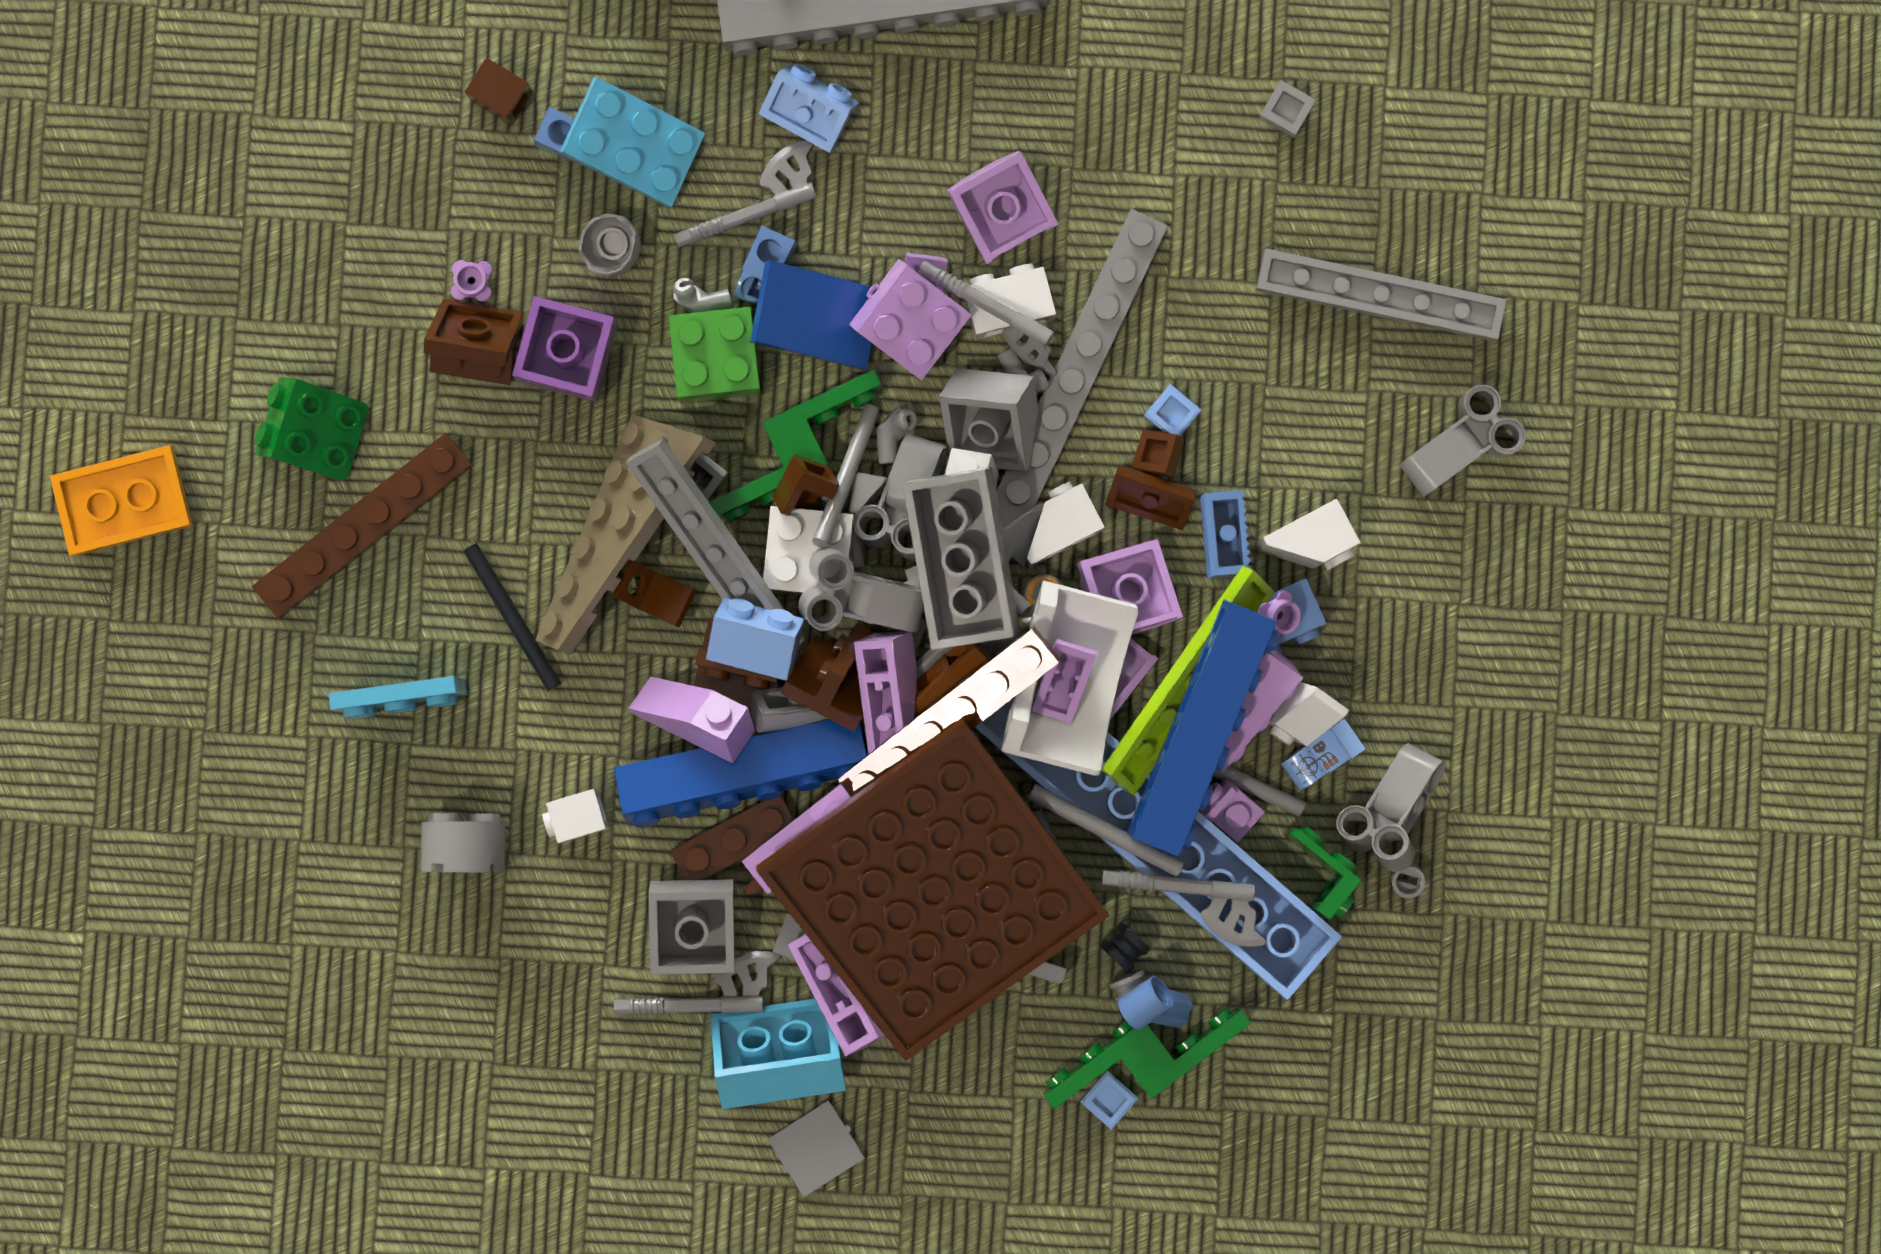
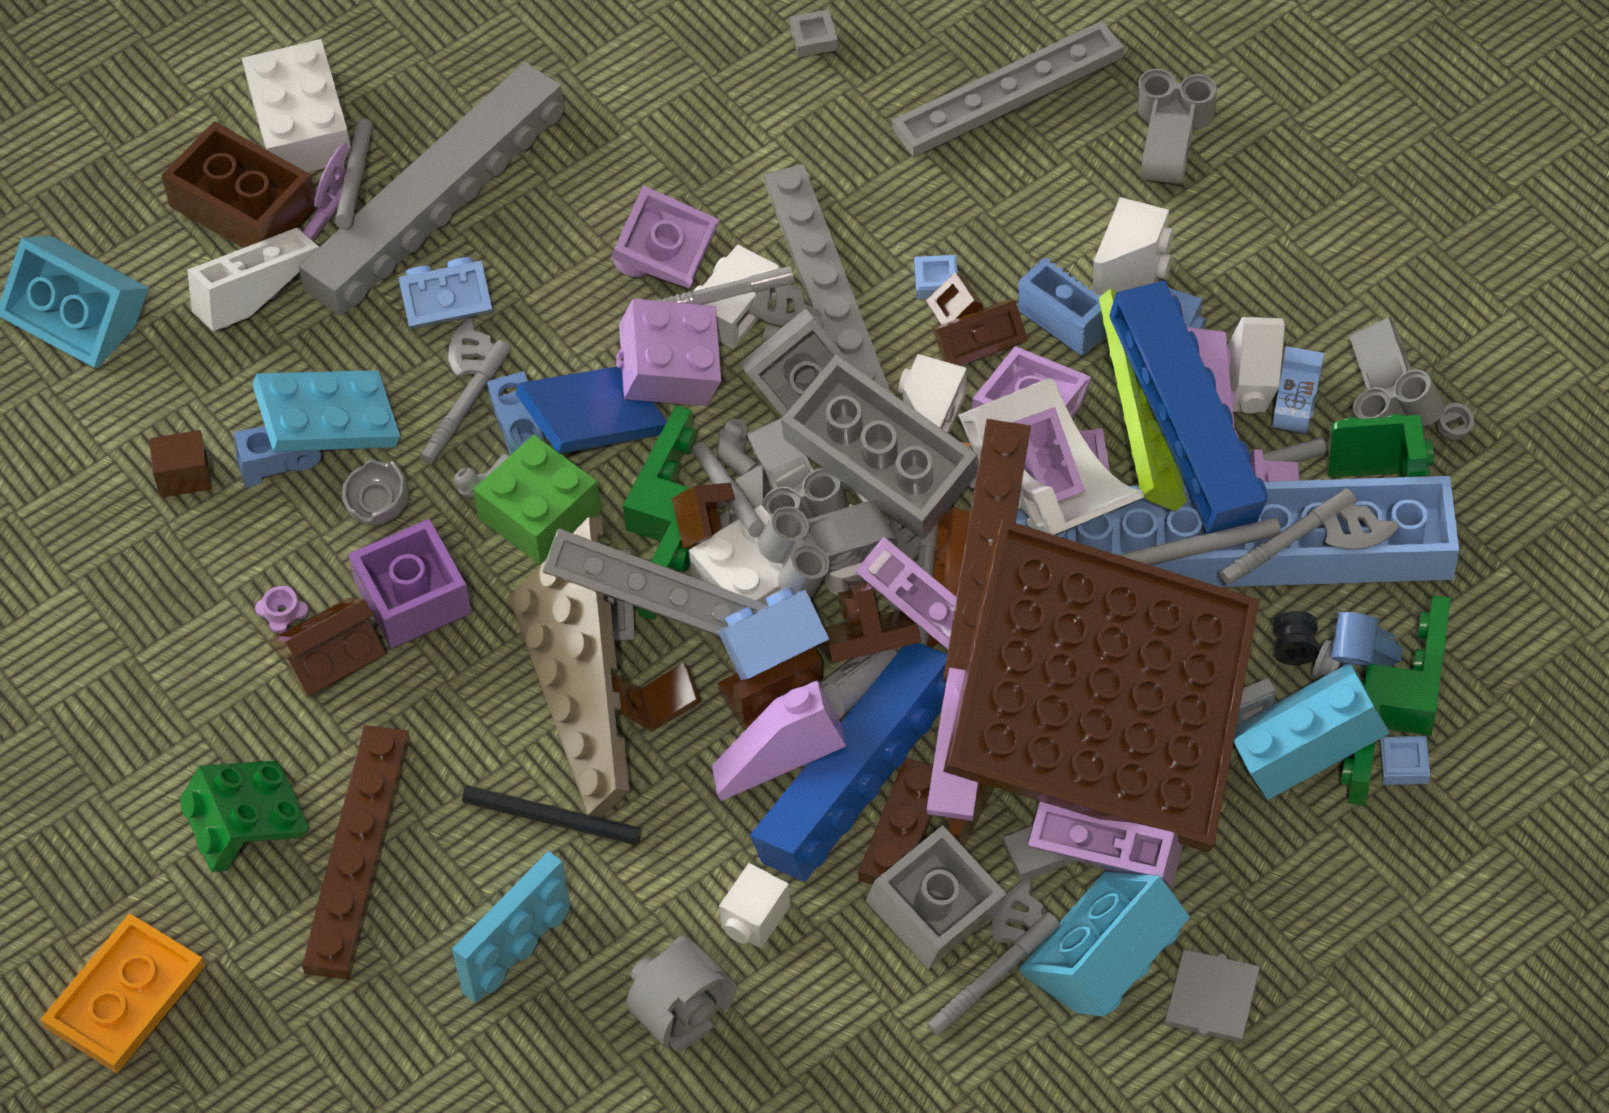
camera: 35 degrees left, 30 degrees down
(1054, 1029) = (1309, 731): none -> medium azure slope

